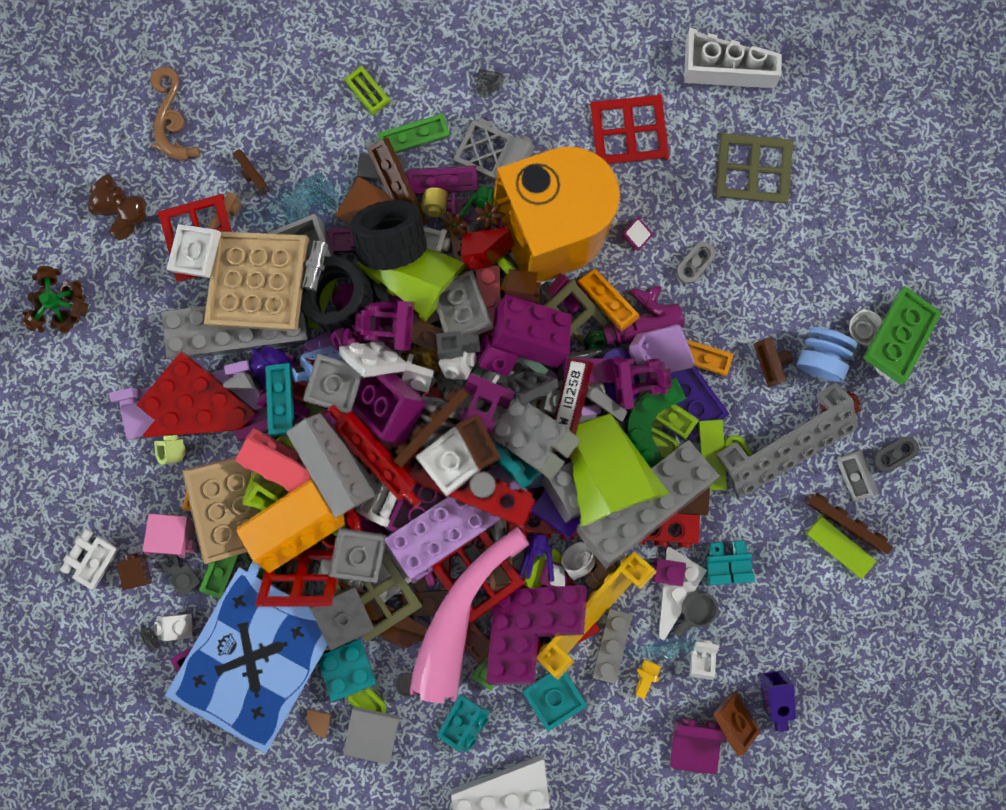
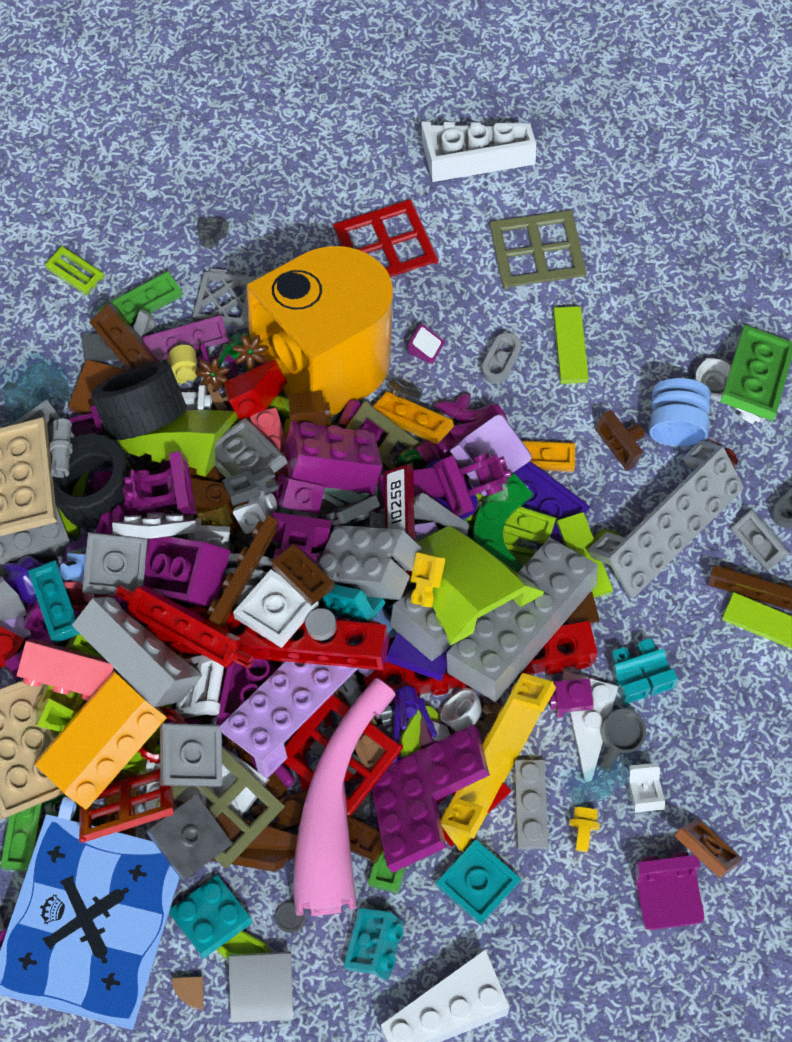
camera: 15 degrees left, 20 degrees down
(411, 158) = (144, 323): none -> light grey tile
(578, 465) = (427, 574): none -> yellow plate
(608, 272) = (404, 390): none -> clear smoke tile
(755, 264) = (570, 345): none -> lime tile
(778, 698) = (750, 797): dark purple torso -> none

